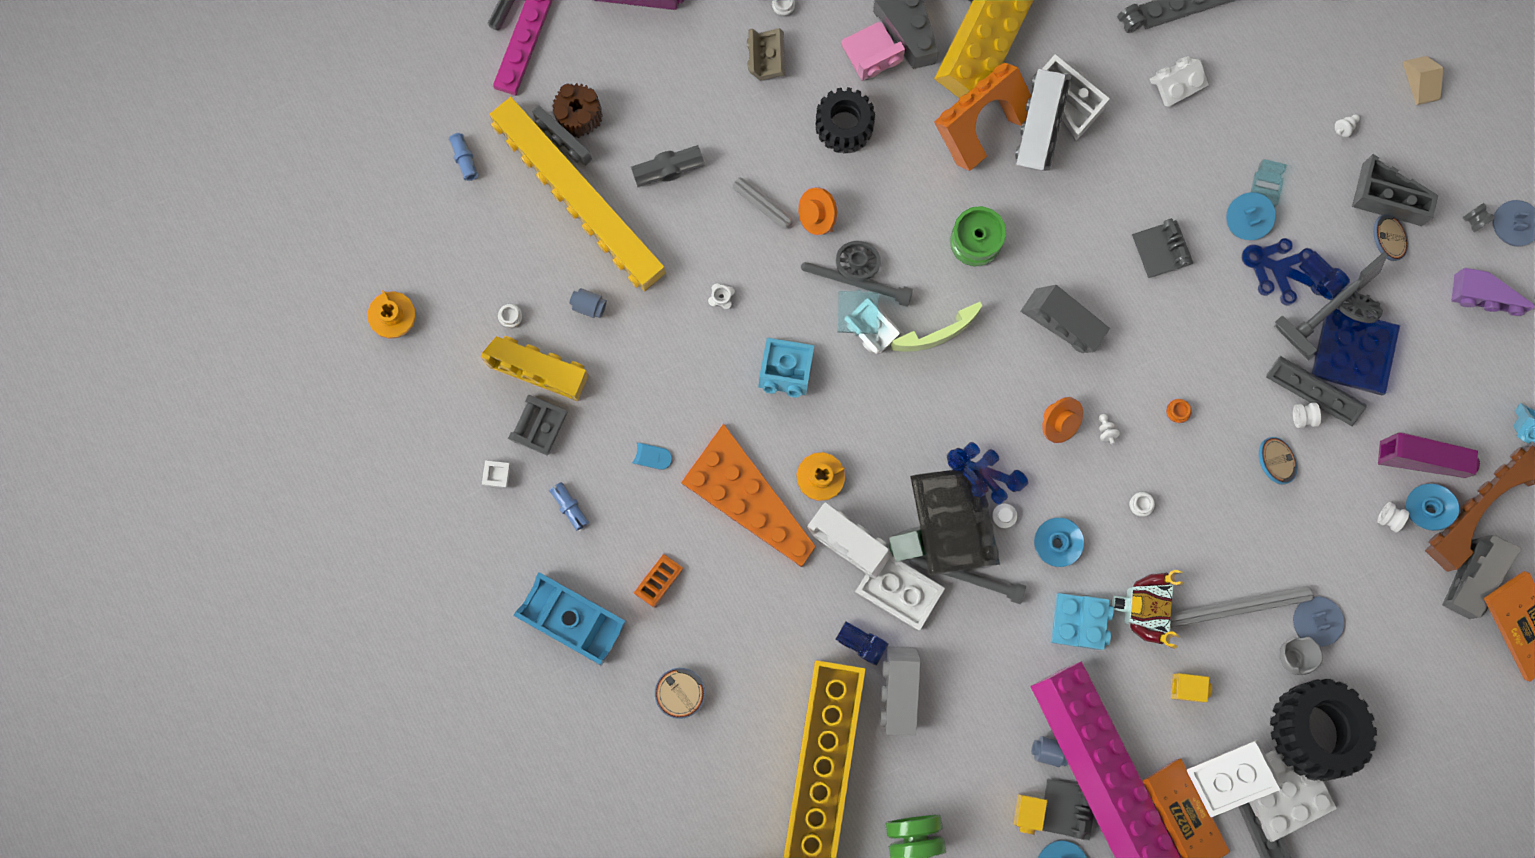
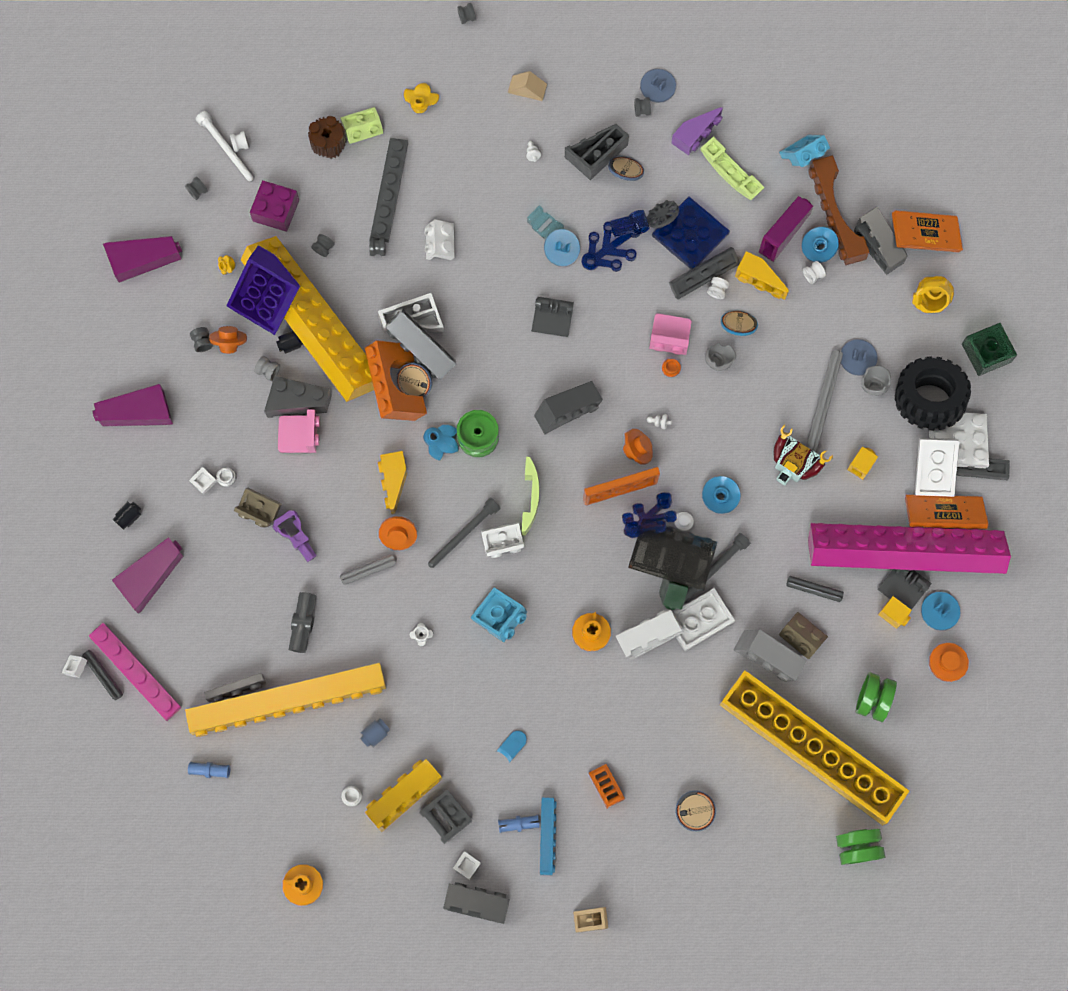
camera: 65 degrees left, 5 degrees down
(459, 503) = (476, 903): none -> dark grey wedge
(503, 638) = (590, 920): none -> tan slope
(574, 542) = (547, 841): none -> dark azure piece
(578, 98) = (217, 656): reddish brown brick -> none
(592, 632) = (587, 878): dark azure piece -> none
(738, 489) = (568, 695): orange wing -> none
(754, 114) = (299, 540): none -> medium lavender piece
(845, 102) = (337, 464): black tyre -> none
(858, 261) = (448, 525): dark grey wheel -> none
(858, 312) = (488, 543): clear light blue piece -> none
(866, 645) = (727, 662): clear blue piece -> none
(880, 175) = (395, 474): none -> yellow slope
(945, 718) = (803, 635): none -> dark tan bracket
(947, 207) = (443, 443): none -> dark azure plate
(1000, 137) = (414, 380): none -> tan piece
(1004, 423) = (621, 486): none -> orange tile
(1007, 705) = (815, 589): none -> dark grey axle
(1048, 752) = (860, 578): sand blue brick -> none
(1081, 621) = (782, 509): medium azure plate -> none
(1142, 504) = (722, 426): white plate -> none
(1218, 389) = (670, 334): none -> bright pink bracket
(1223, 459) = (720, 357): none -> light grey hair
(1298, 335) = (661, 262): dark grey piece -> none
(1352, 451) = (758, 273): none -> yellow slope
(1420, 773) = (989, 349): none -> clear green brick
(1452, 674) = (933, 294): none -> yellow helmet
(1462, 355) = (730, 171): none -> yellowish green slope

